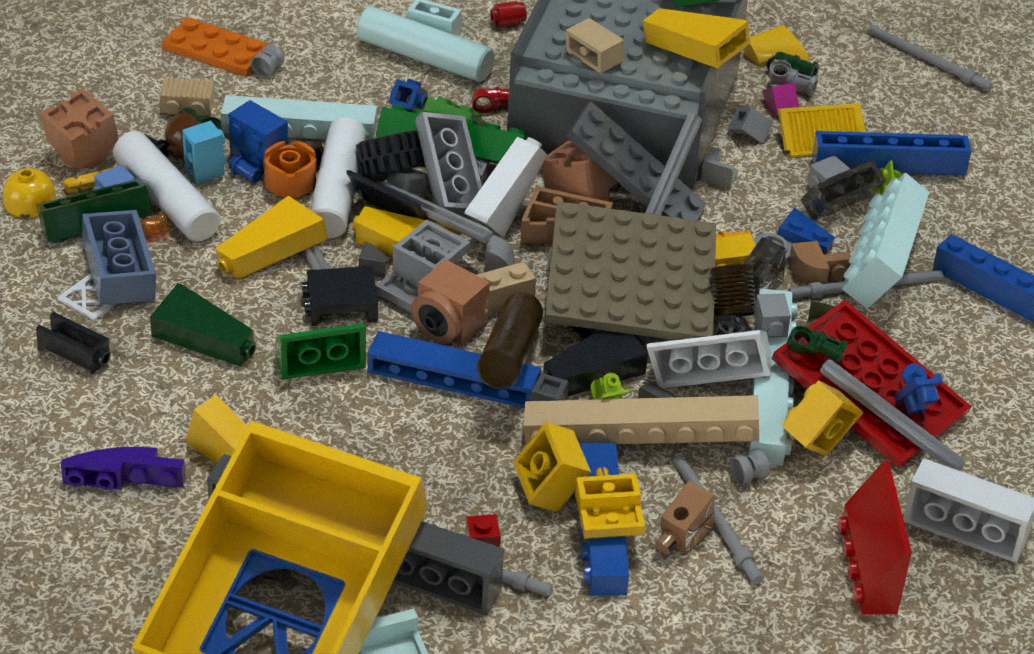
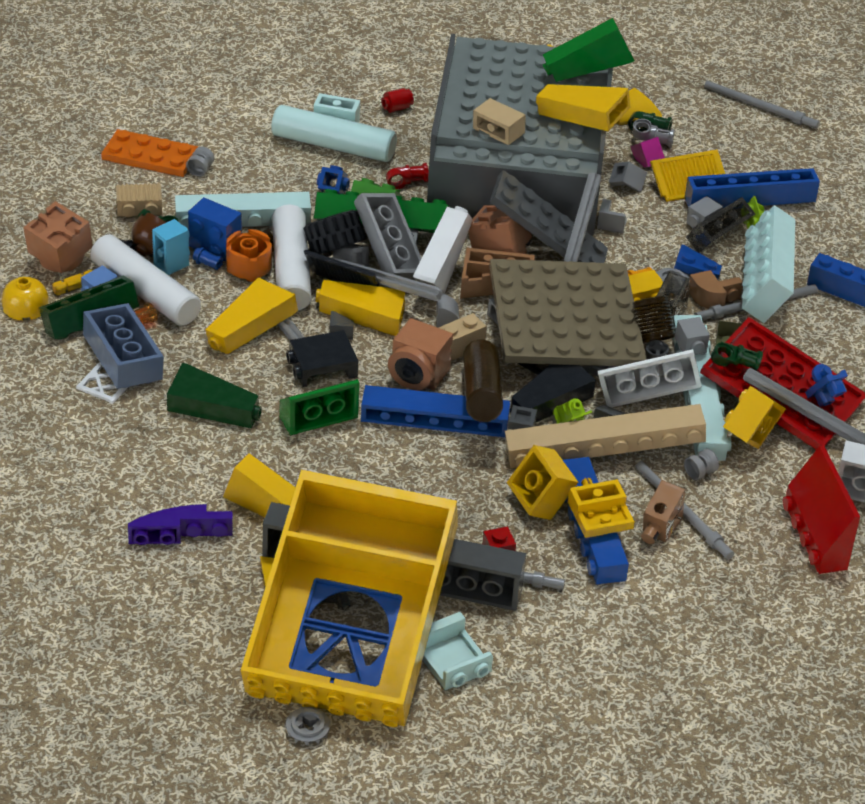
camera: 10 degrees left, 0 degrees up
(74, 342) = (105, 423): black window -> none
(415, 258) = (383, 321): light grey bracket -> none

